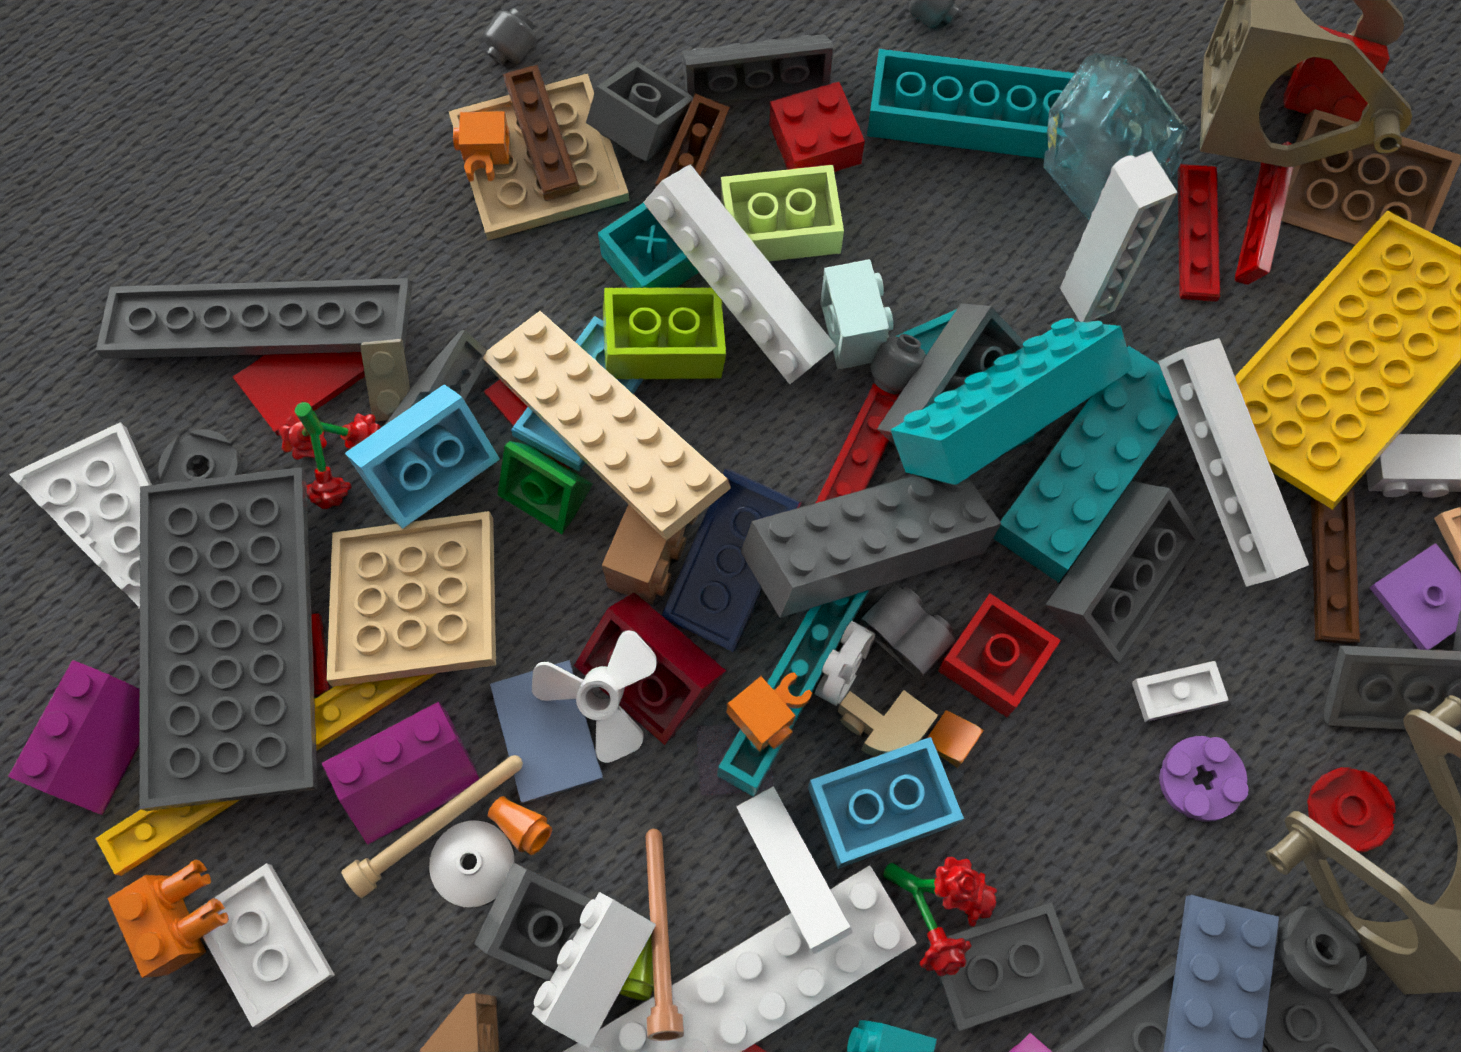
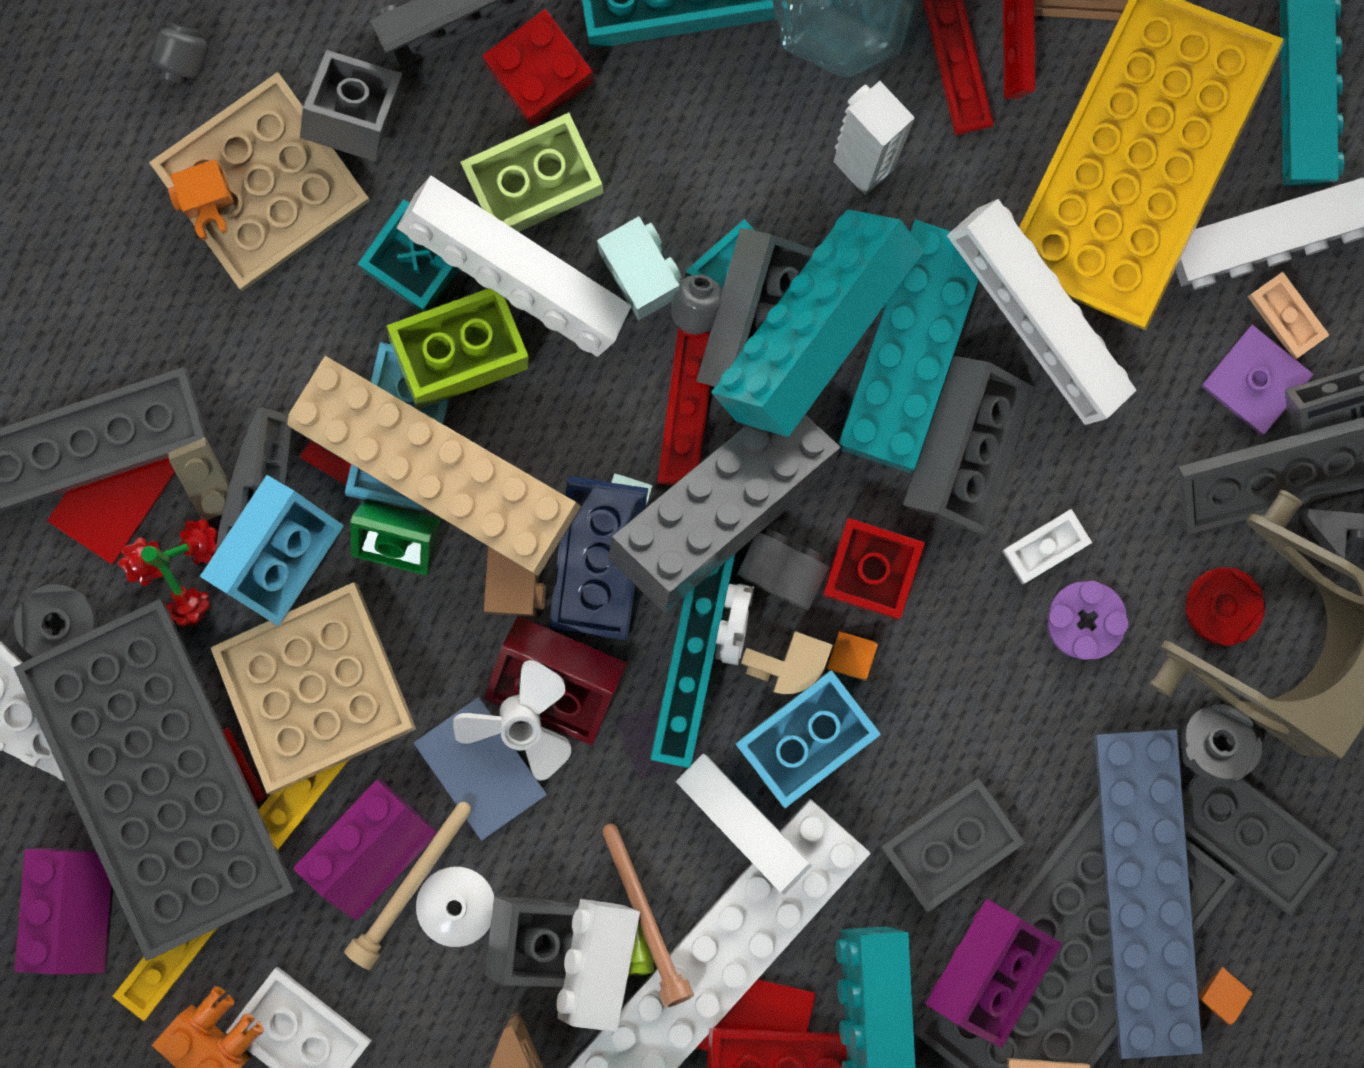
camera: 20 degrees left, 15 degrees up
(522, 826) = (487, 860): orange cone -> none
(541, 133) = (255, 158): reddish brown tile -> none
(696, 137) = (418, 133): reddish brown brick -> none
(765, 712) = (676, 701): orange brick -> none
(960, 889) = (890, 800): red plant -> none
(1335, 571) = (1166, 382): reddish brown tile -> none

